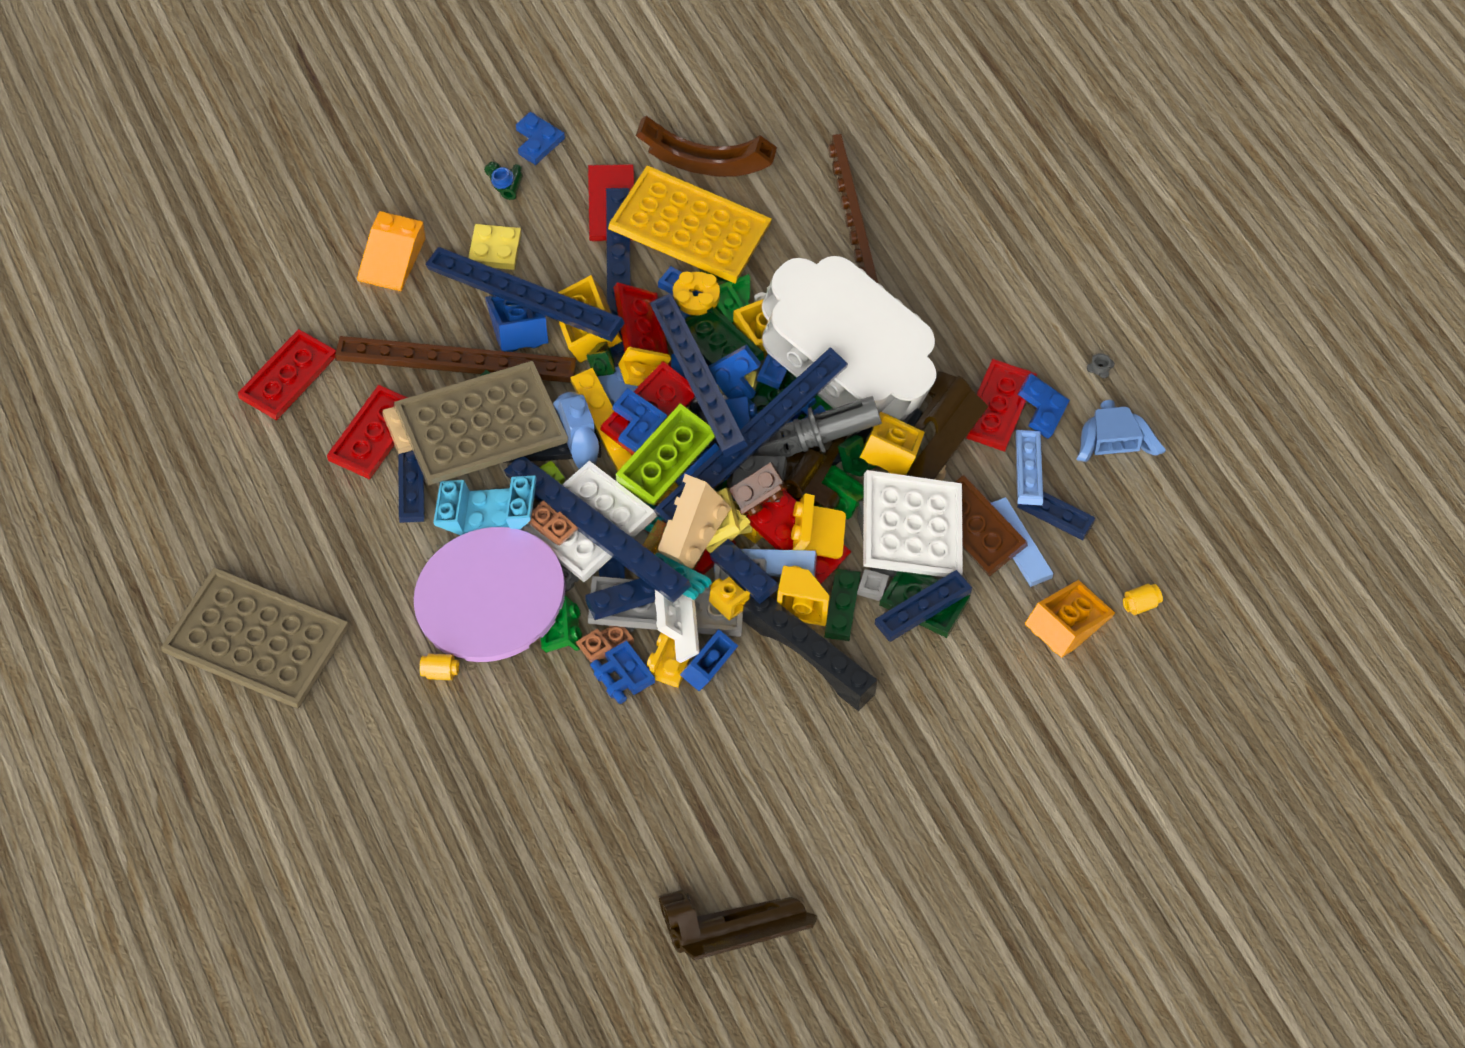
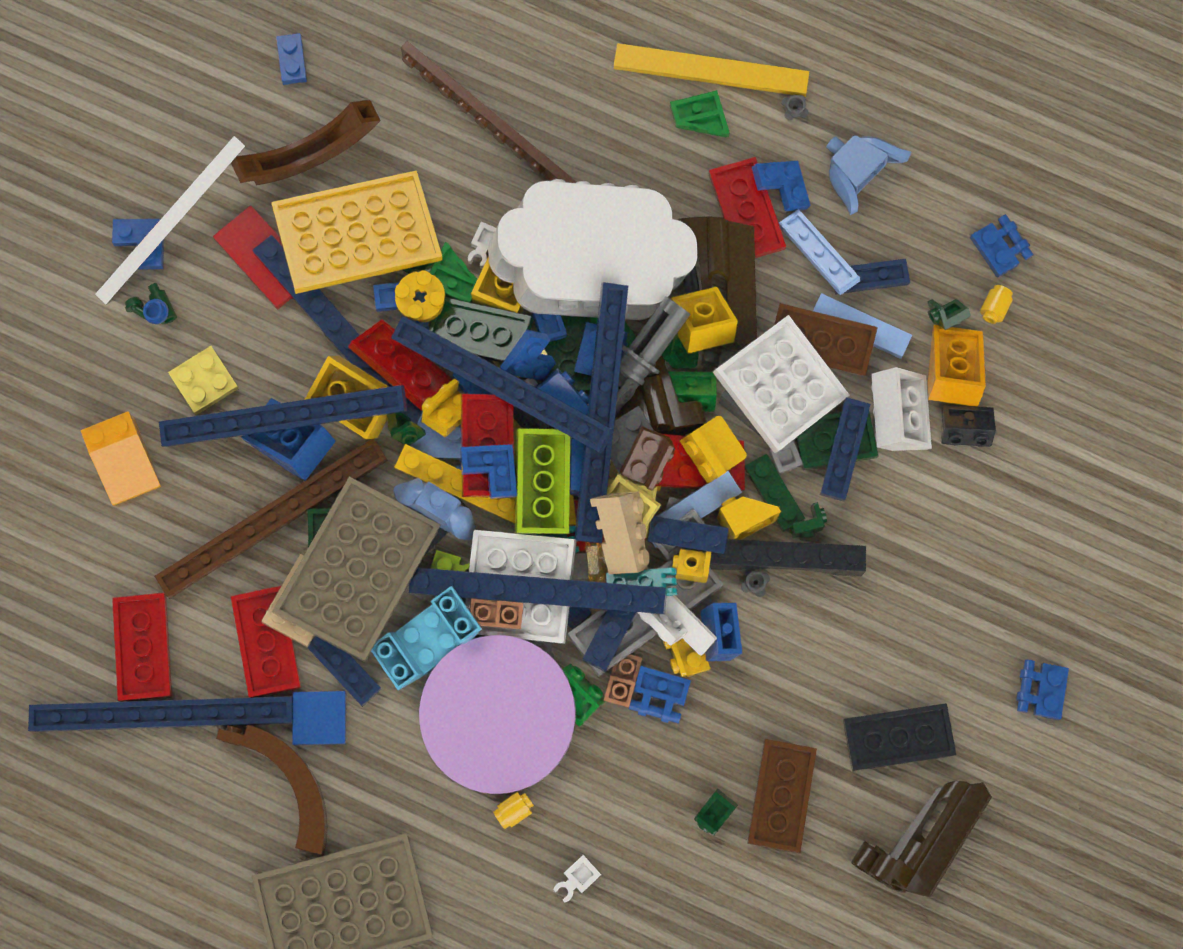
camera: 40 degrees left, 20 degrees up
(259, 425) = (160, 714): none -> dark blue plate
(305, 546) = (310, 801): none -> reddish brown arch
(362, 507) = (319, 718): none -> blue tile
(442, 748) = (579, 876): none -> white plate
(567, 130) = (169, 220): none -> white sticker
(586, 781) = (715, 812): none -> dark green bracket
(649, 810) = (782, 796): none -> reddish brown plate
(749, 99) = (291, 59): none -> plate
(769, 646) = (758, 589): none -> dark grey plate
(781, 839) = (899, 737): none -> black plate
(848, 642) = (808, 528): none -> dark green bracket
(935, 902) = (1050, 690): none -> blue plate
(995, 617) = (901, 410): none -> white slope
(1020, 321) = (700, 114): none -> green wing
(1040, 665) = (968, 425): none -> black bracket
(1057, 301) = (711, 70): none -> yellow tile
(1097, 581) = (948, 314): none -> dark green bracket
(1177, 565) = (996, 251): none -> blue plate

